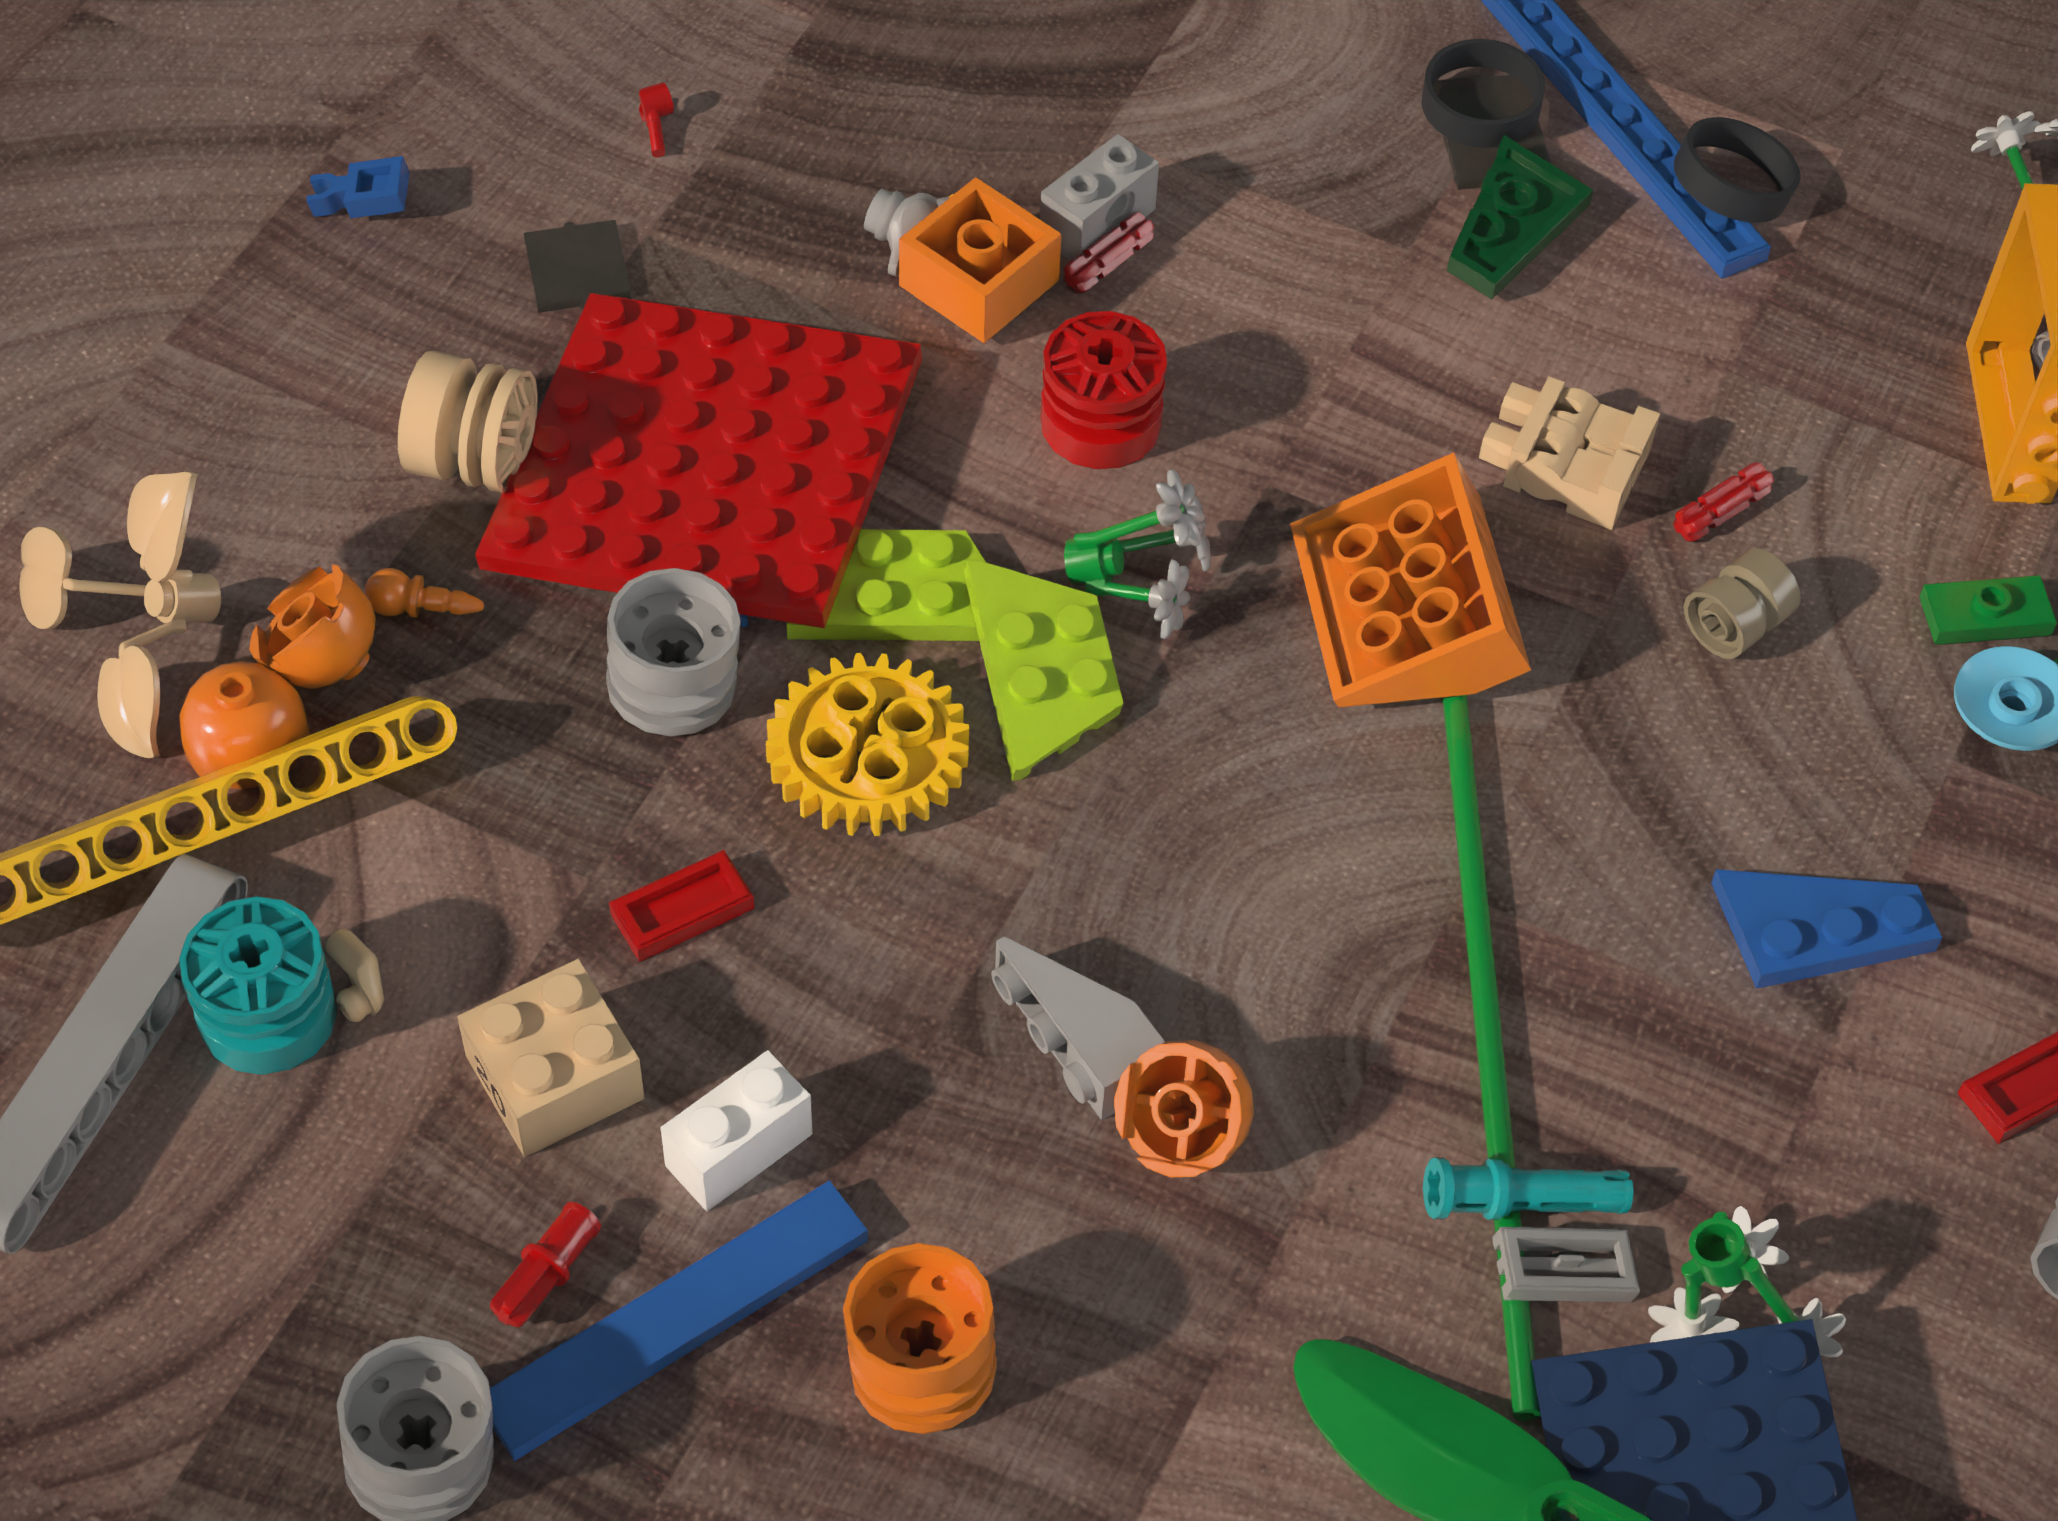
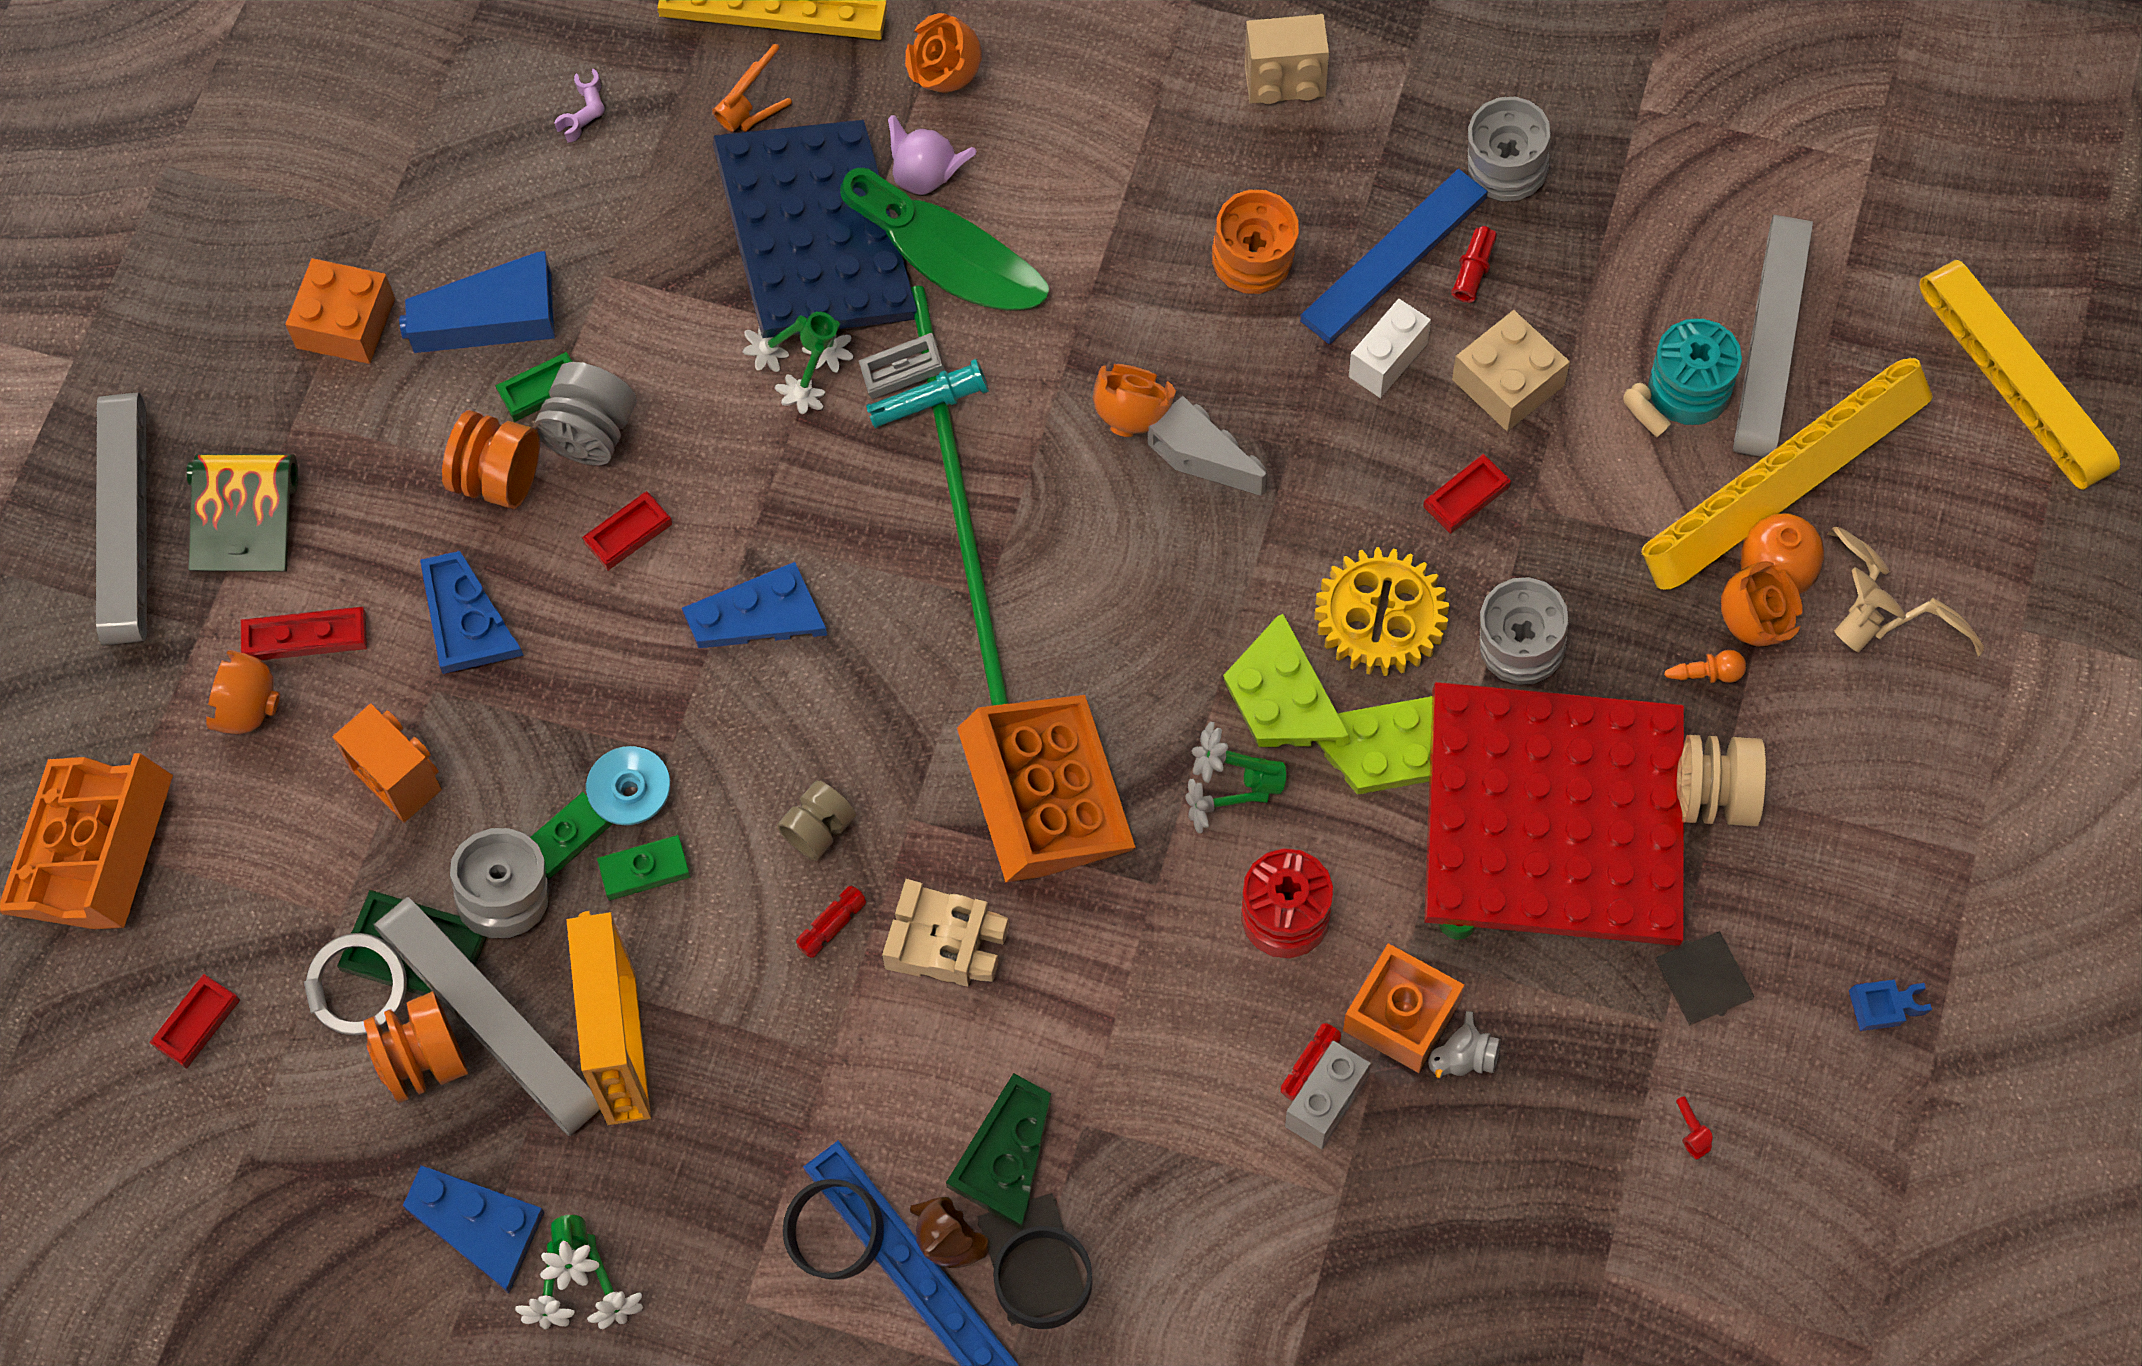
camera: 175 degrees right, 10 degrees up
(1595, 133) = (946, 1235): none -> reddish brown piece

